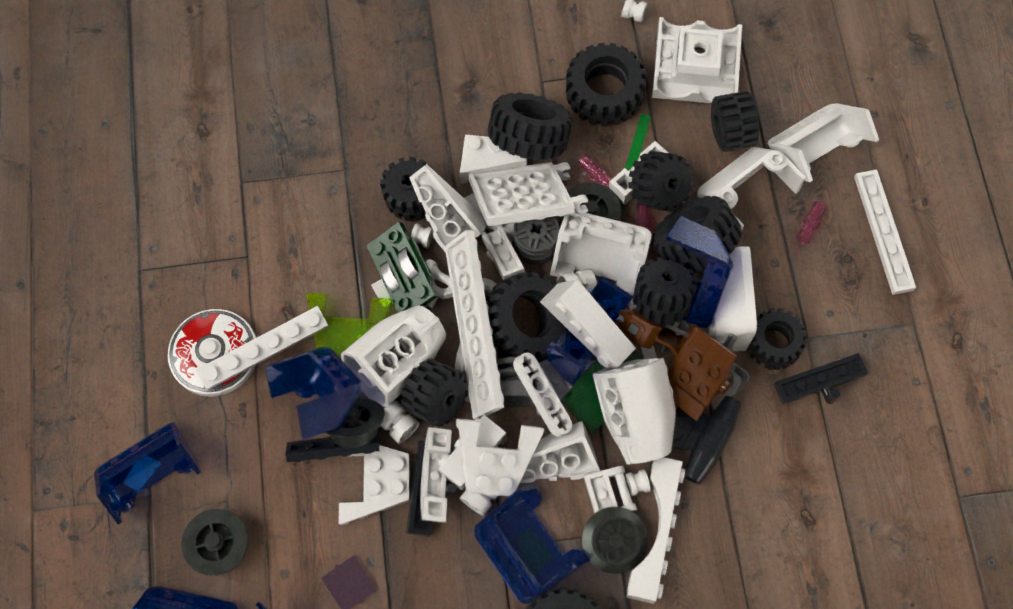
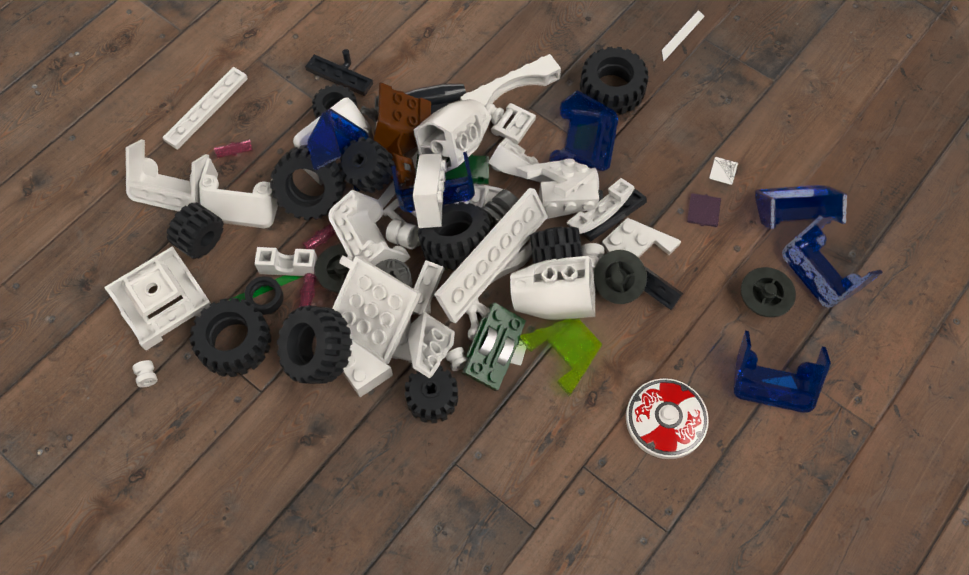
camera: 135 degrees left, 5 degrees down
(262, 348) = (634, 380): white plate -> none
(321, 374) = (611, 308): clear blue windscreen -> none
(539, 396) = (504, 168): white beam -> none
(614, 540) = (537, 98): pearl dark grey wheel -> none
(625, 124) = (261, 282): none -> black tyre
(661, 181) = (285, 232): black wheel -> none

